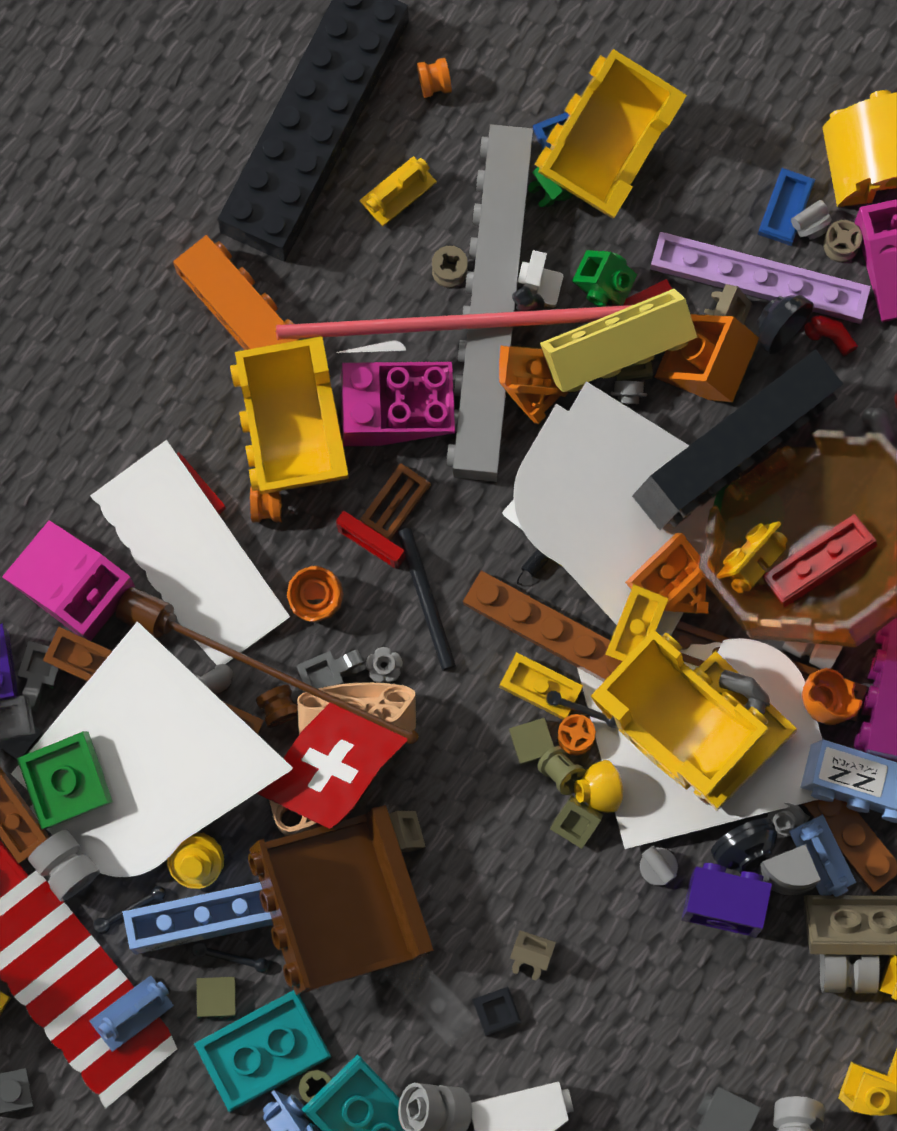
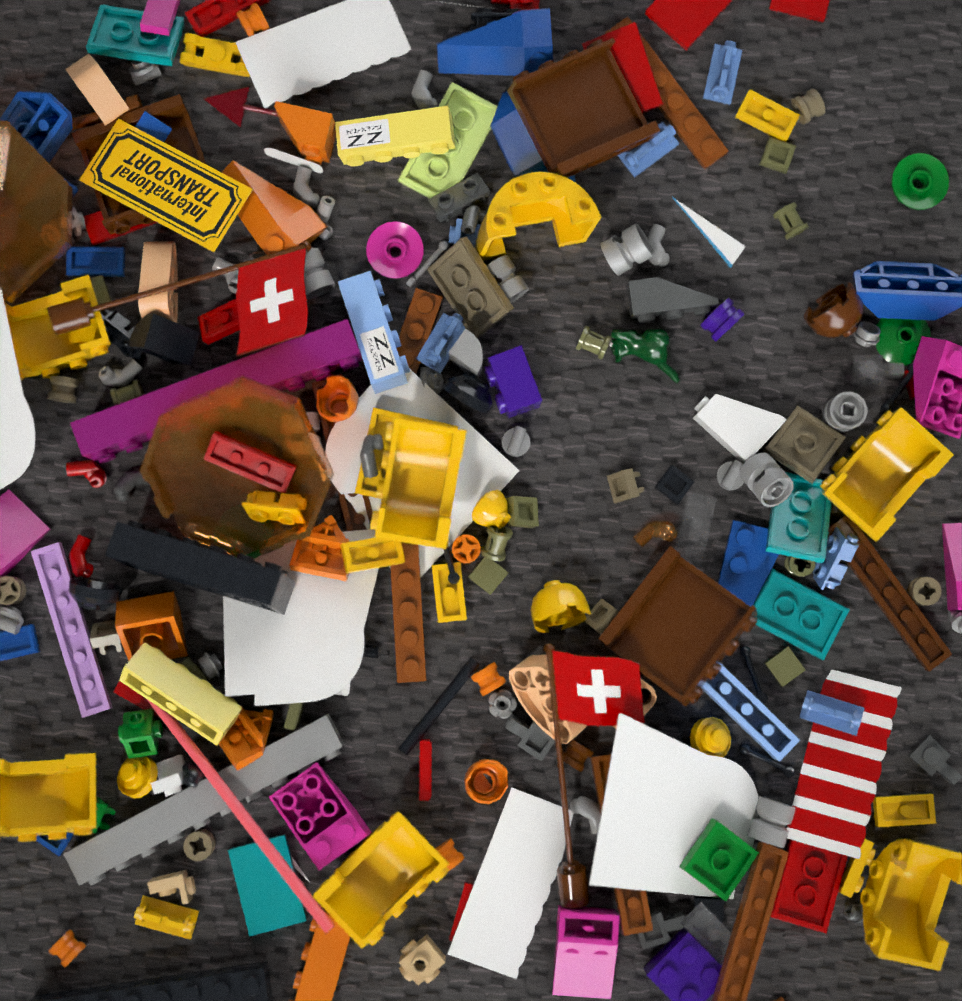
camera: 130 degrees left, 10 degrees up
(178, 409) = (422, 950): none -> tan brick
(356, 295) = (263, 892): none -> teal tile
(356, 1027) = (746, 561): none -> blue wing
(406, 511) = (388, 759): dark orange tile -> none
(420, 667) = (488, 679): none -> orange wheel
(431, 213) = (168, 883): none -> tan bracket
(449, 790) = (558, 605): none -> yellow cylinder
(461, 955) = (657, 529): none -> clear orange arm
(466, 1076) = (729, 475): none -> light grey plate
(517, 441) = (294, 715): none -> olive tile
(563, 248) = (136, 776): none -> yellow plate
(671, 1084) = (648, 346): none -> dark green animal
(715, 1025) = (593, 342): none -> olive bush

